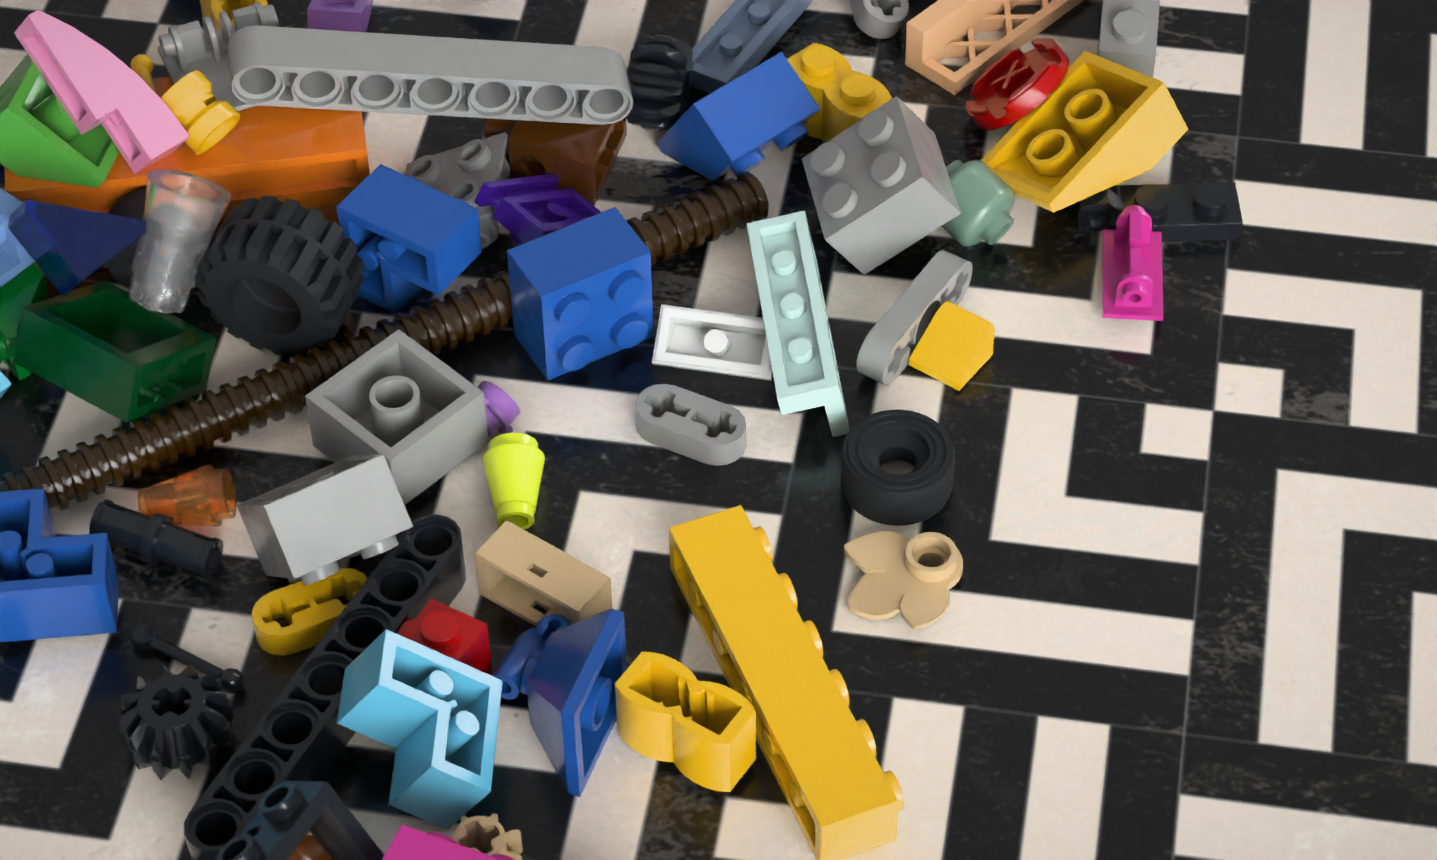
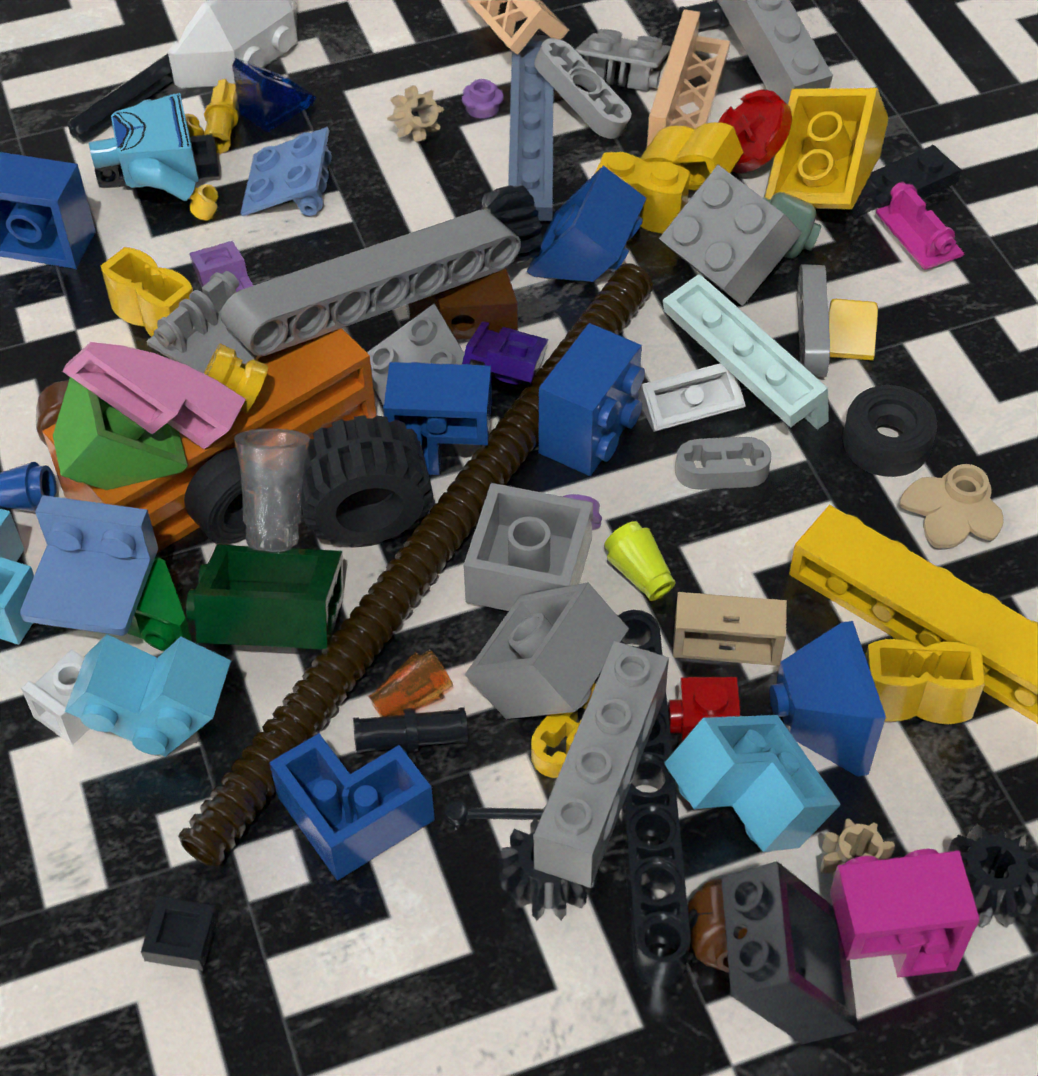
camera: 30 degrees left, 5 degrees up
(72, 241) = (204, 526): clear blue slope -> none
(273, 633) = (600, 764): none -> light grey brick
(526, 645) = (756, 679): blue arm -> none
(930, 82) = (696, 149): none -> yellow brick

